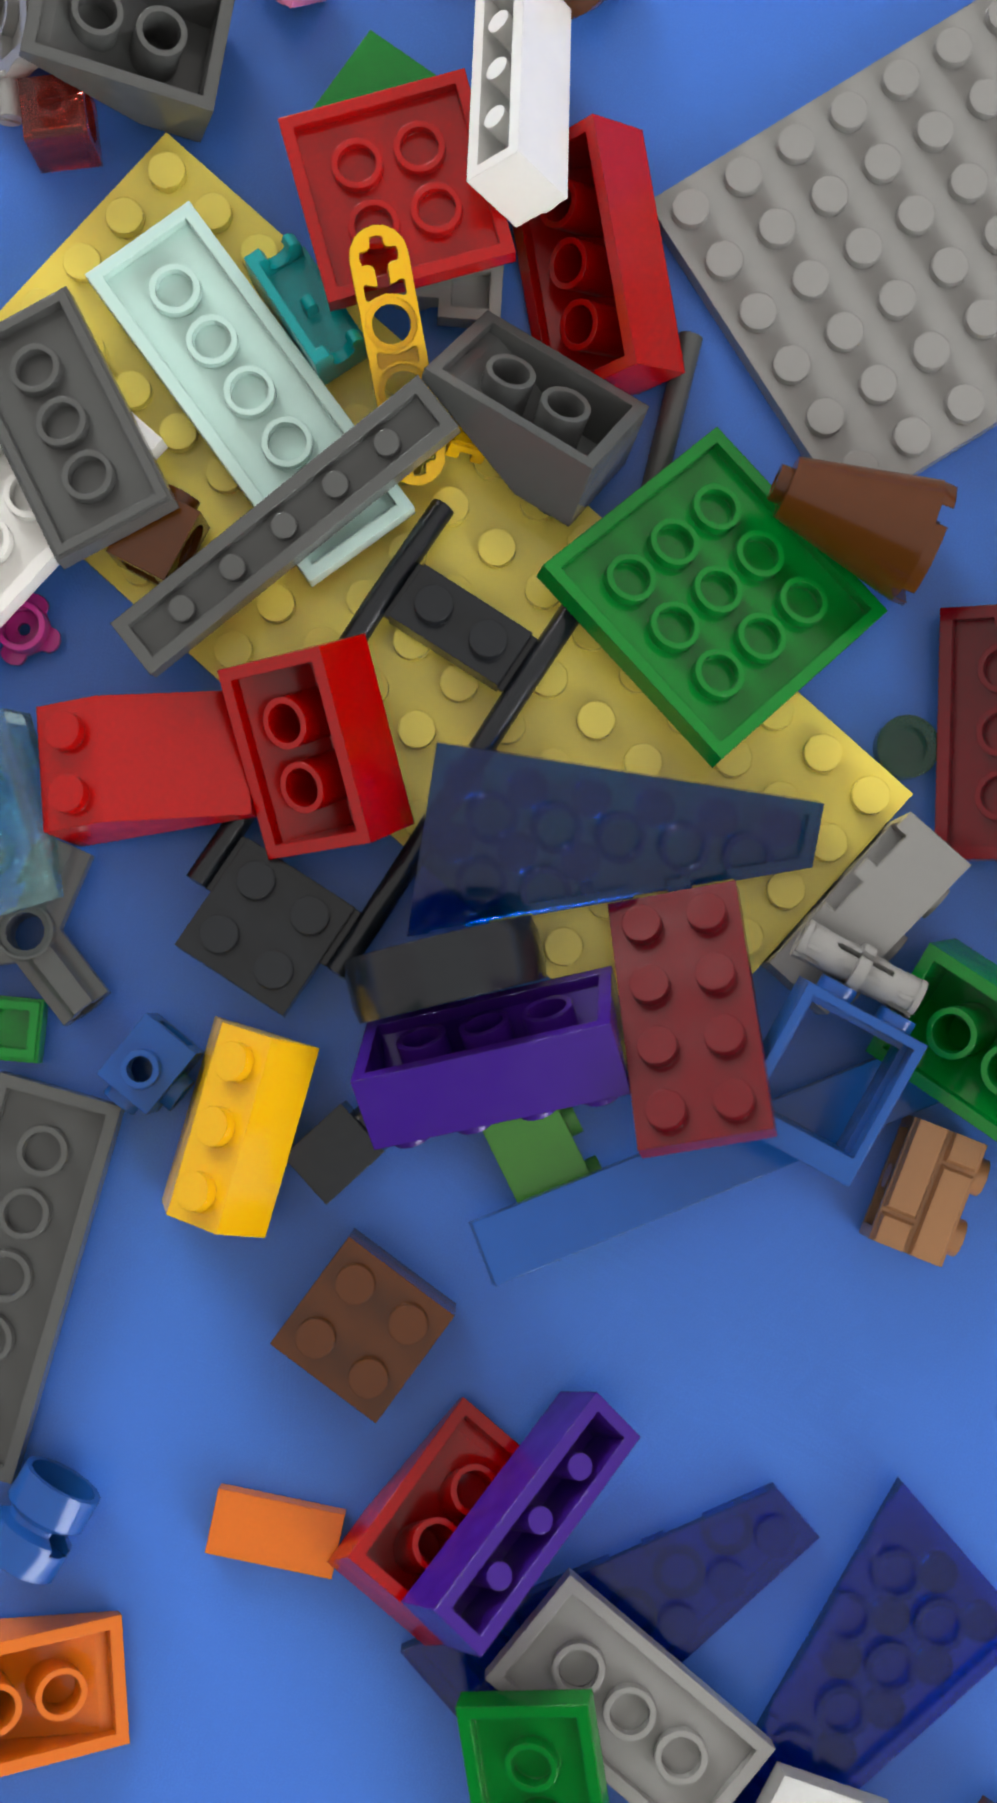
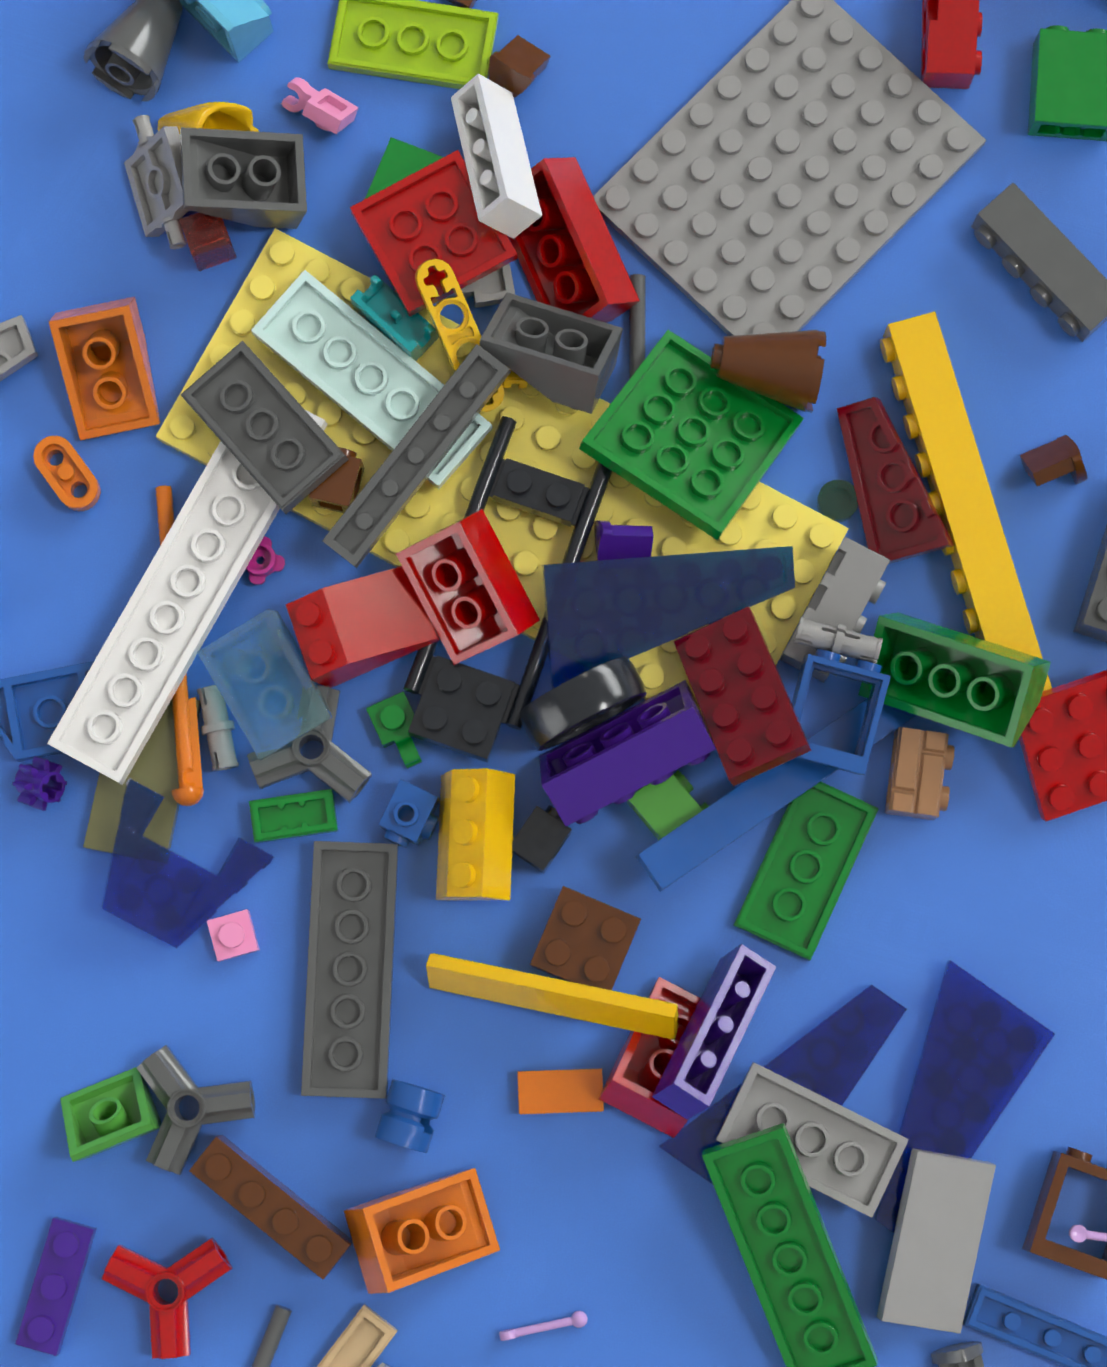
camera: 10 degrees left, 5 degrees down
(158, 920) = (392, 722): none -> green plate
(295, 1398) = (553, 996): none -> yellow tile
(568, 733) = (622, 541): none -> dark purple tile
(721, 1291) = (806, 869): none -> green tile

